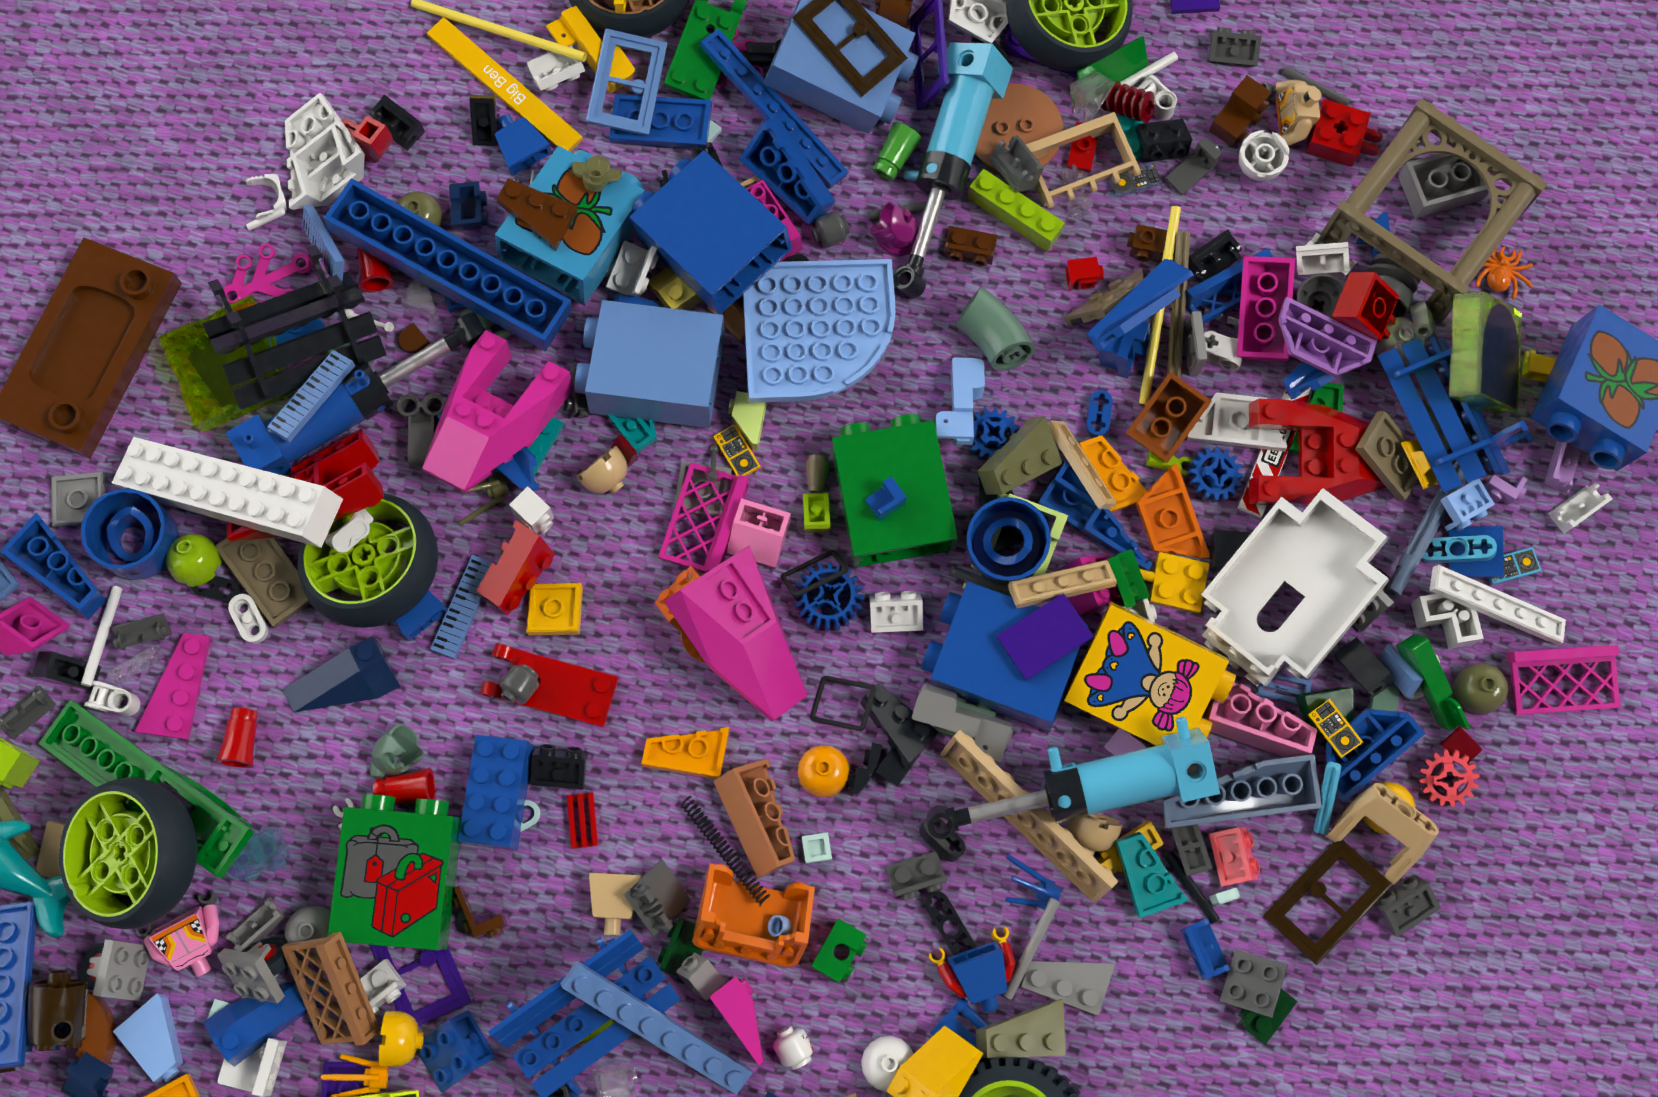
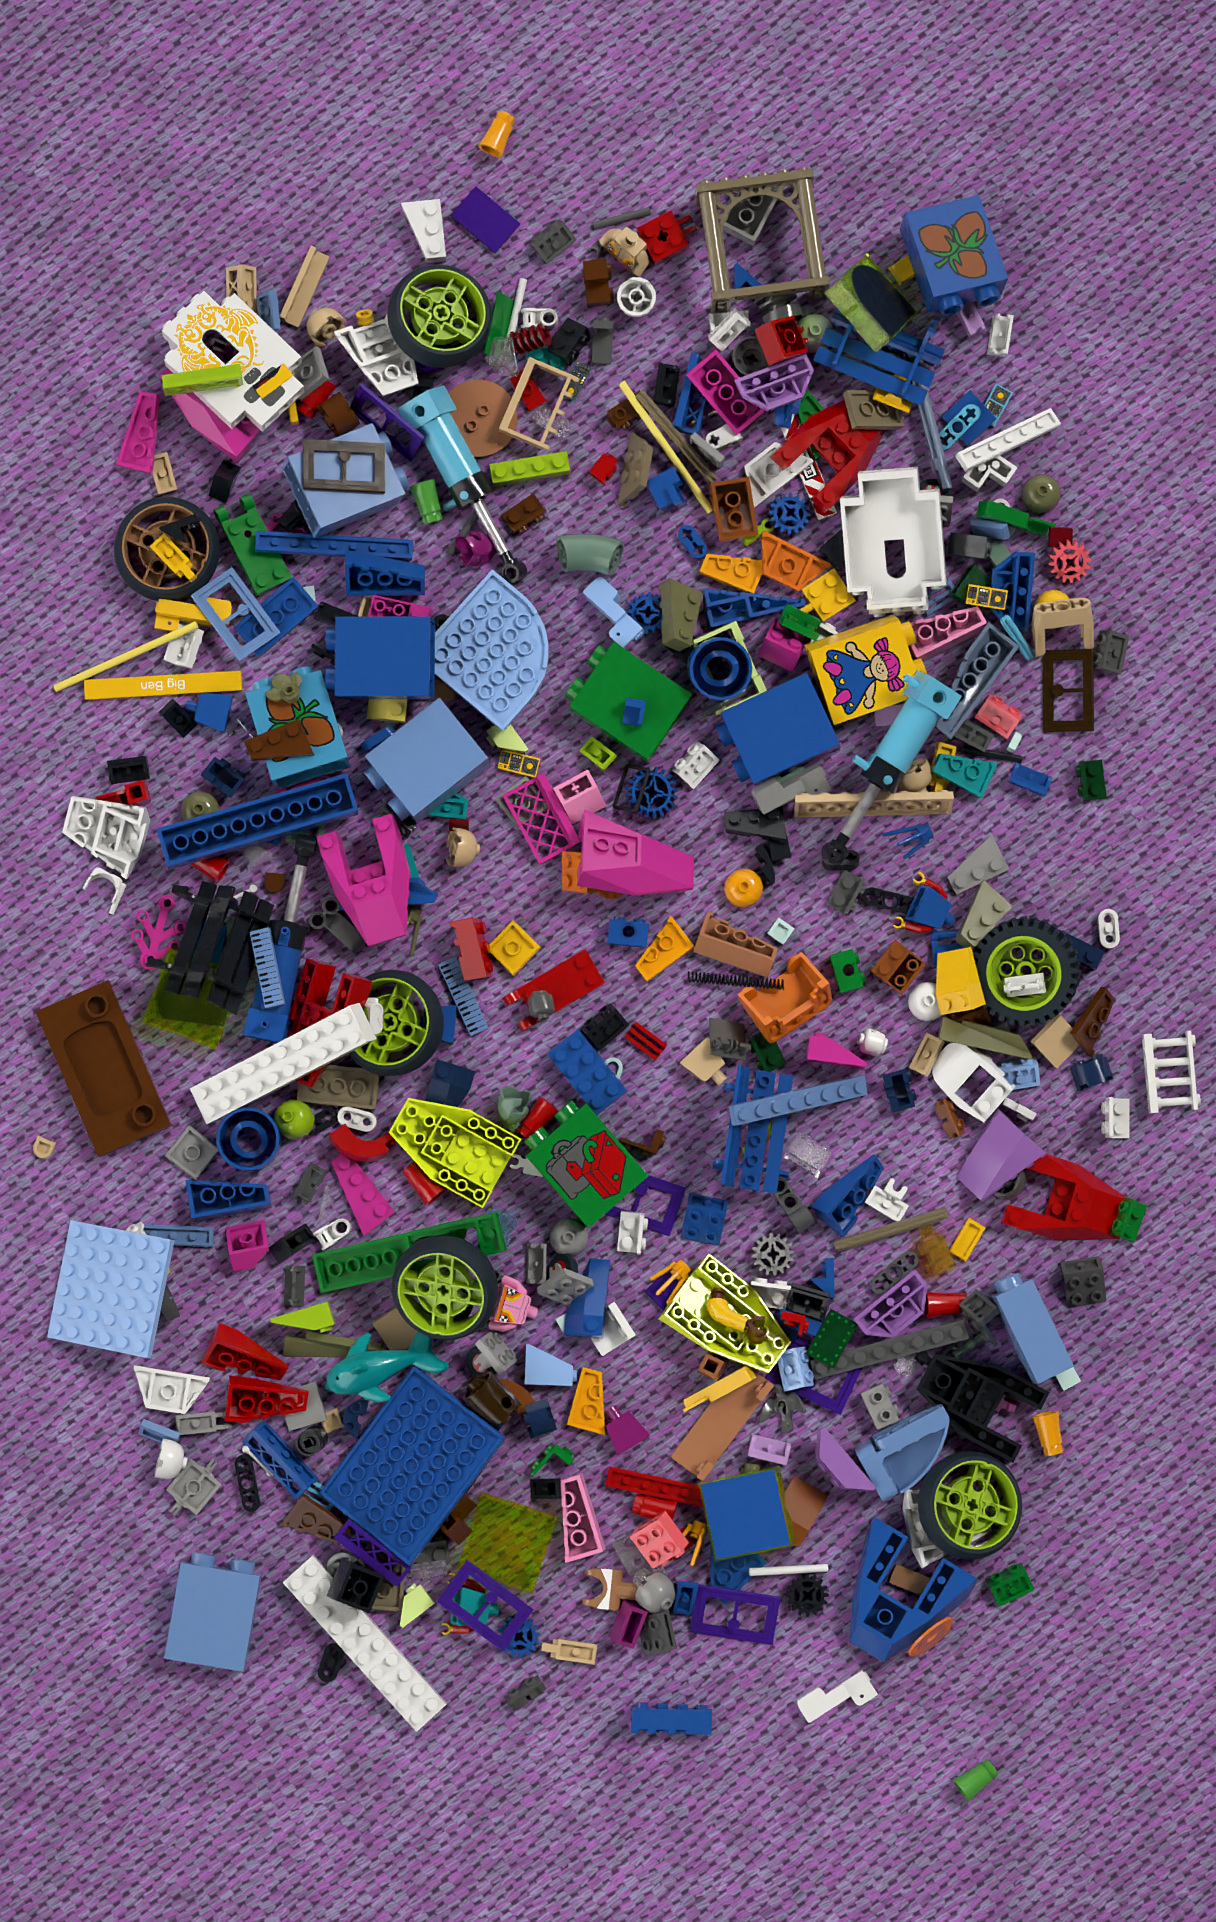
camera: 50 degrees left, 10 degrees up
(101, 636) = (290, 1207): white bar -> none
(211, 631) = (360, 1150): none -> red arch
(299, 736) = (455, 1147): none -> neon yellow wedge
(320, 236) = (169, 878): medium blue tile -> none
(342, 984) = (622, 1241): medium nougat fence -> none
(399, 1039) = (672, 1240): yellow cylinder -> none
(532, 511) = (449, 908): white brick -> none
(631, 269) = (357, 720): white bracket -> none
(675, 717) = (616, 936): none -> blue brick
(700, 976) = (790, 1055): light grey brick -> none
(712, 475) = (524, 791): dark grey hinge -> none
(779, 925) = (803, 989): light blue hinge -> none
(817, 471) = (574, 731): dark tan cone -> none
(830, 229) = (438, 584): dark grey head -> none
(841, 724) = (724, 856): black piece -> none
(892, 999) = (897, 967): none -> dark orange slope
(1017, 164) = (506, 443): dark grey hinge -> none
(1031, 948) = (941, 869): light grey bar -> none
(1044, 637) = (791, 702): dark purple tile -> none
(1068, 581) = (771, 663): tan tile -> none
(1081, 465) = (713, 583): tan tile -> none
(1142, 302) = (659, 461): blue wedge -> none
(1253, 983) = (1070, 773): dark grey hinge -> none
(1422, 320) = (818, 311): light grey bar -> none
(1467, 503) = (939, 397): light blue bracket -> none
(1502, 272) = (831, 233): orange animal -> none
(1503, 491) = (949, 369): lavender bracket -> none
(1564, 656) = (1070, 429): dark pink fence -> none

